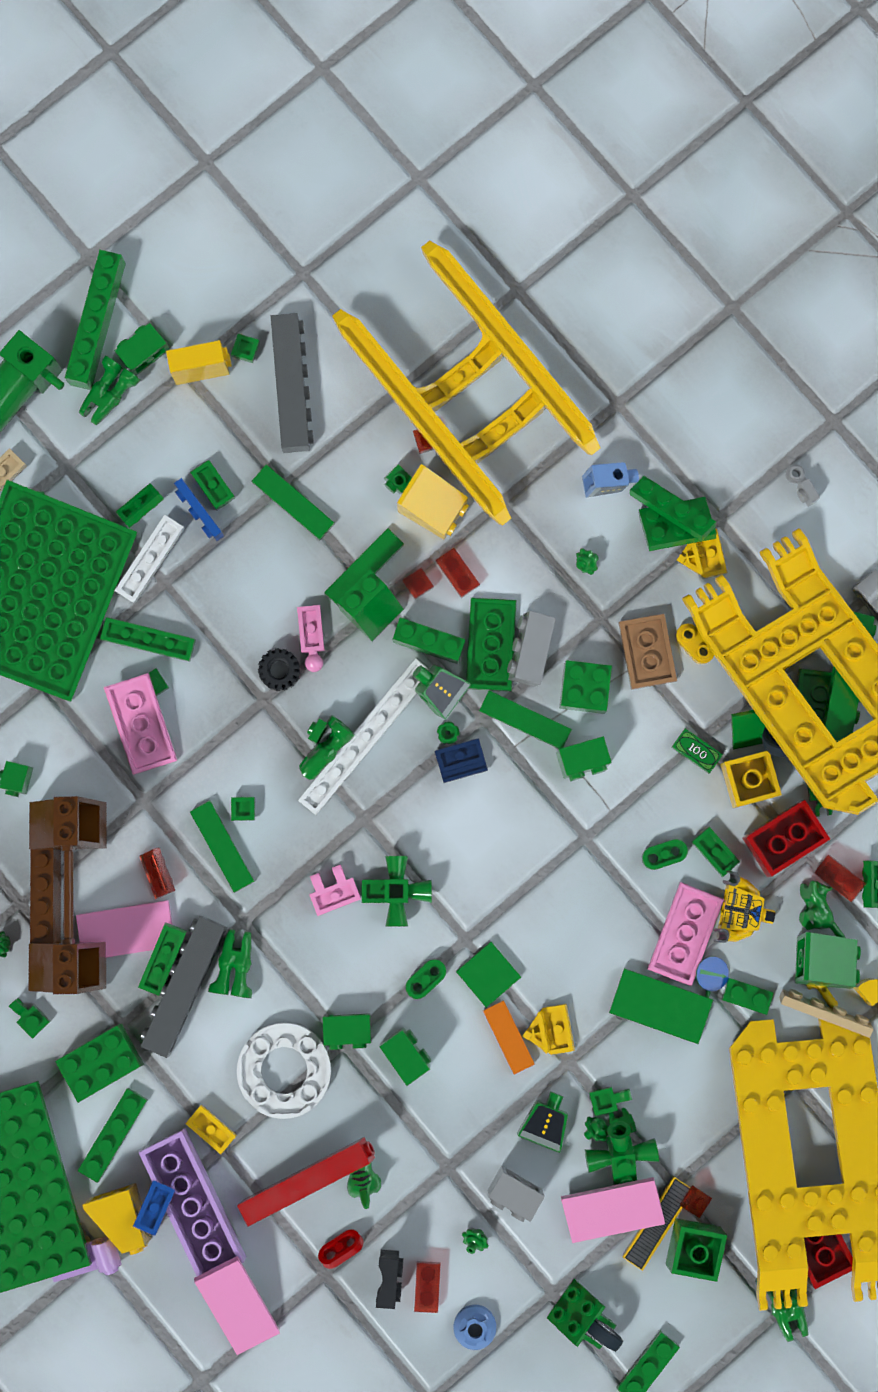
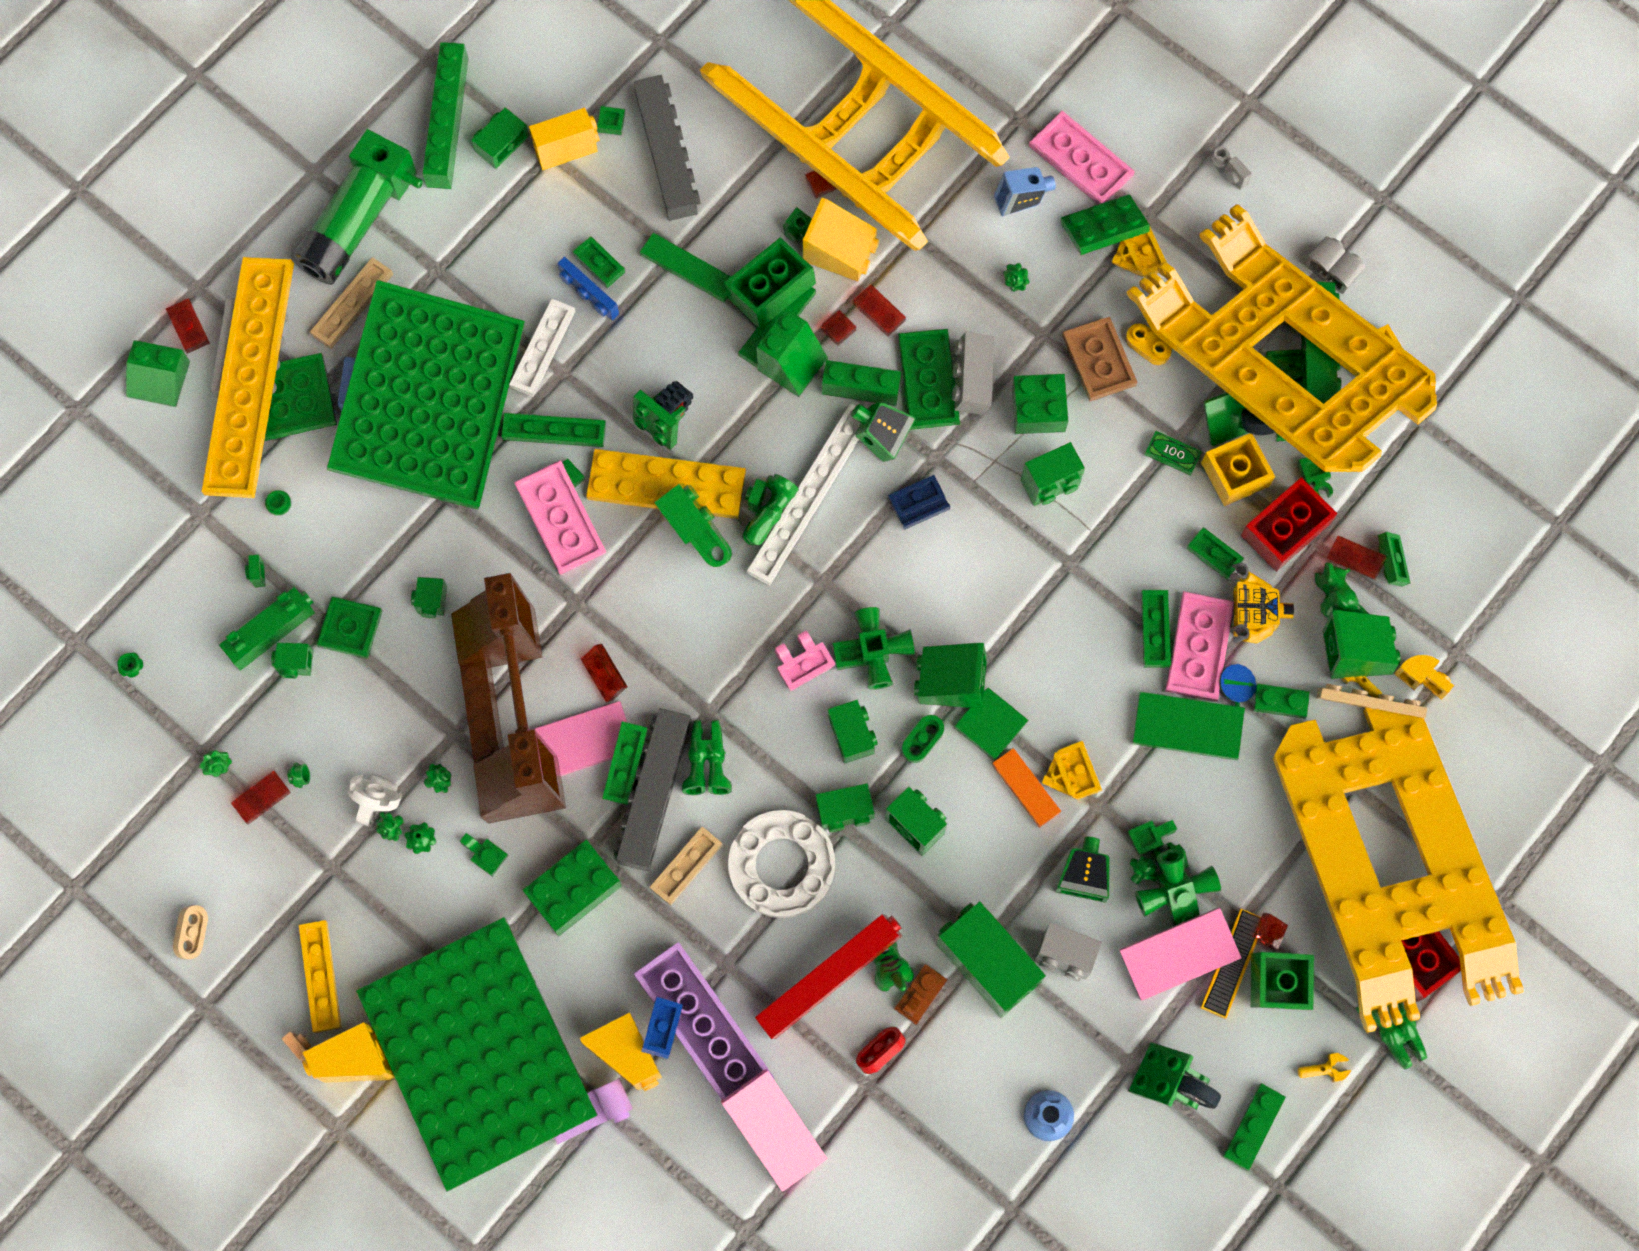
camera: 10 degrees left, 10 degrees down
(99, 392) = (470, 193): green piece -> none
(112, 1135) = (599, 968): green plate -> none
(139, 505) = (523, 294): green plate -> none
(201, 1058) = (686, 866): none -> tan plate
(211, 1129) = (710, 942): yellow plate -> none
(222, 846) = (671, 635): green tile -> none
(240, 705) = (645, 479): none -> yellow plate
(242, 808) = (688, 590): green plate -> none
(246, 641) = (662, 412): none -> green plate
(256, 753) = (693, 523): none -> green brick
(279, 683) = (703, 424): black tyre -> none
(311, 635) = (732, 398): bright pink plate -> none
(362, 533) = (770, 282): none -> green brick
(364, 962) = (851, 731): none -> green brick
(384, 1204) = (920, 994): none -> dark orange plate
(390, 1290) = (943, 1058): black brick -> none
(427, 1287) = (986, 1077): clear red plate -> none
(447, 1189) = (989, 958): none -> green brick
(448, 726) = (899, 469): green plate -> none
(460, 929) = (952, 675): none -> green slope
(475, 1240) = (1031, 1015): green plant -> none
(525, 720) = (979, 450): green tile -> none
(649, 912) = (1155, 629): none -> green plate
(664, 854) = (1159, 566): green plate -> none
(668, 453) = (1081, 158): none -> bright pink tile
(673, 508) = (1097, 207): green plate -> none
(720, 1328) = (1326, 1069): none -> yellow bar

